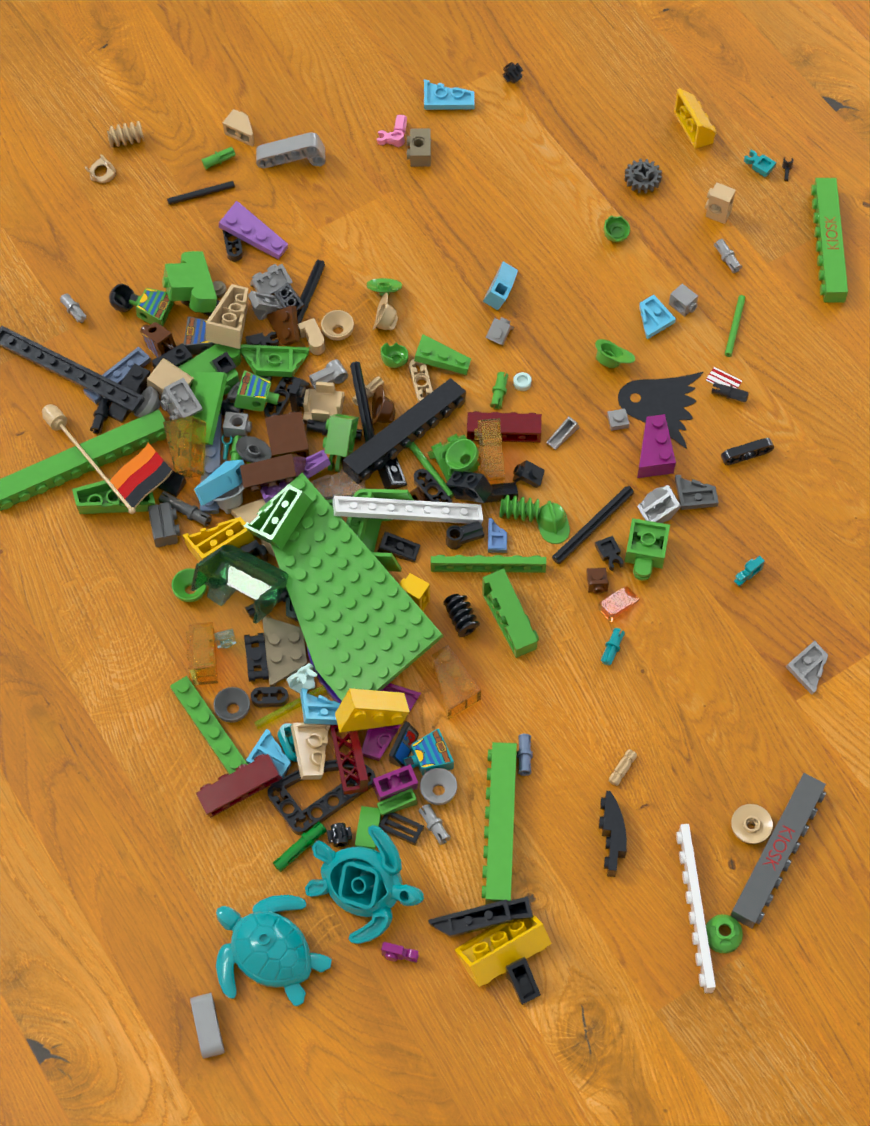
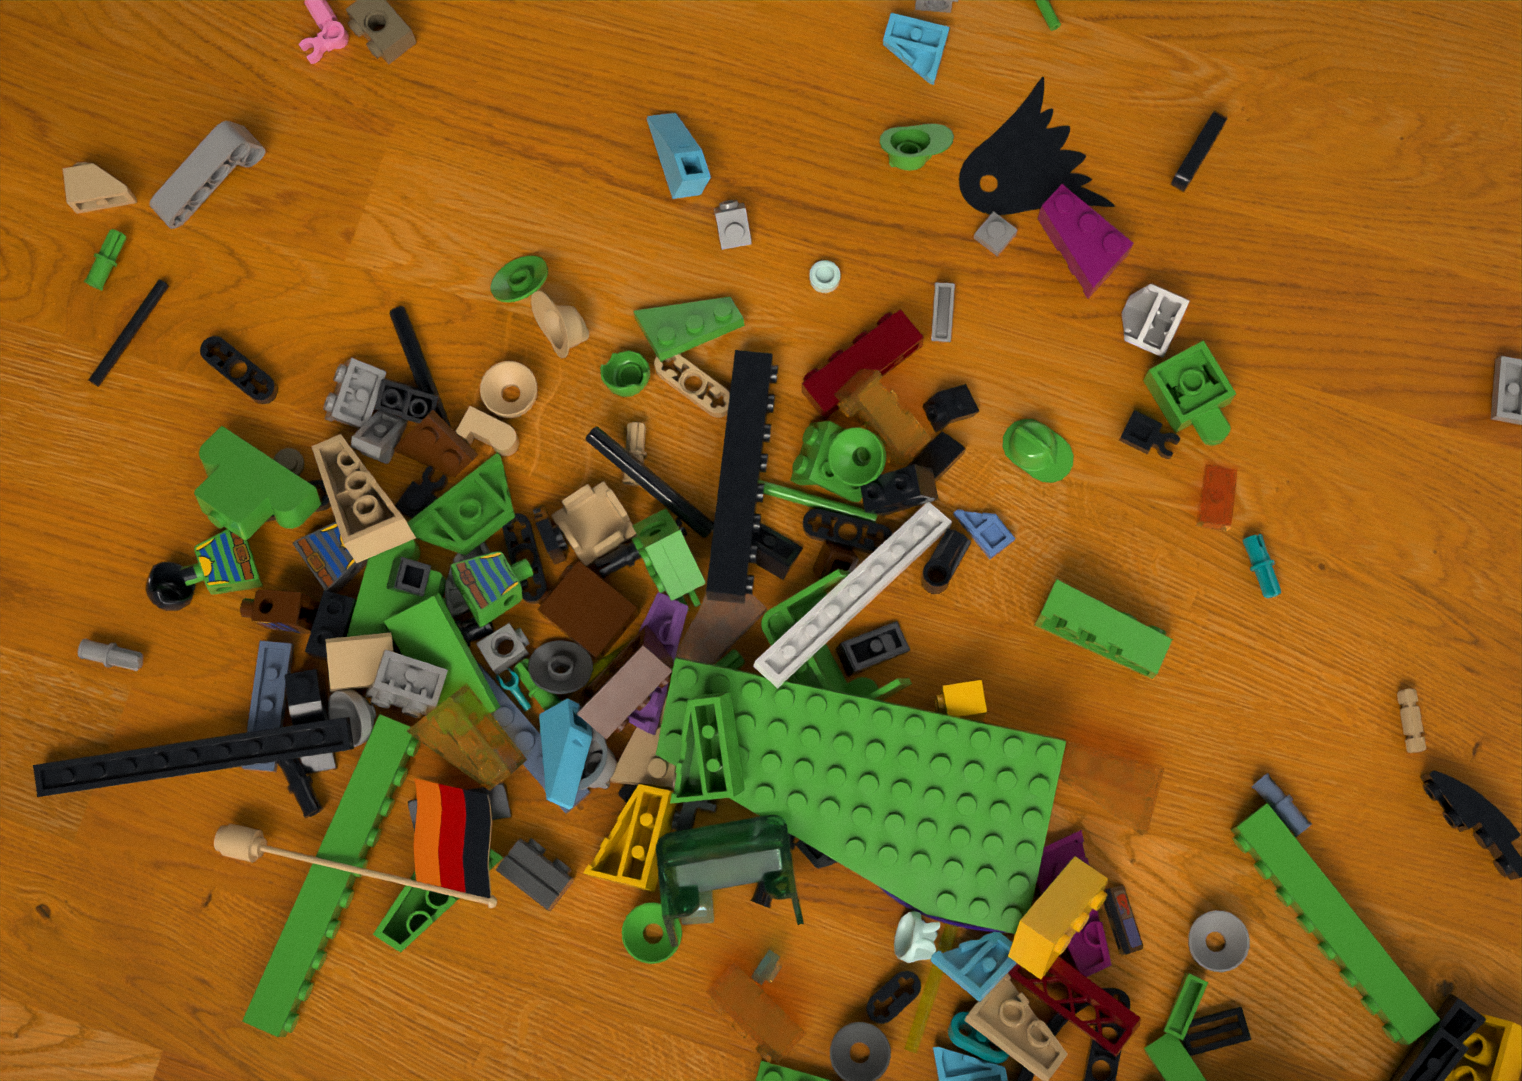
camera: 35 degrees left, 15 degrees up
(191, 512) = (557, 824): dark grey pin -> none
(250, 229) = (255, 337): medium lavender wing -> none
(256, 657) = (827, 957): black plate -> none
(283, 649) = (854, 917): dark tan wing -> none
(332, 373) = (564, 466): light grey piece -> none
(382, 407) = (677, 466): reddish brown piece -> none
(394, 783) = (1164, 985): magenta brick -> none
(430, 753) = (1168, 906): torso -> none
(434, 824) = (1253, 994): light grey pin -> none
(461, 614) = (1041, 679): black piece -> none
(479, 563) = (1000, 586): bright green plate -> none
(499, 390) = (808, 314): bright green pin -> none
(519, 508) = (985, 465): bright green piece -> none
(593, 524) = (1093, 413): black axle -> none
(597, 580) = (1164, 487): reddish brown bracket -> none
(695, 494) = (1184, 265): dark grey wing -> none
(723, 378) = (1079, 68): sticker -> none
(730, 392) = (1106, 81): black axle -> none
(752, 567) = (1342, 314): teal plate -> none

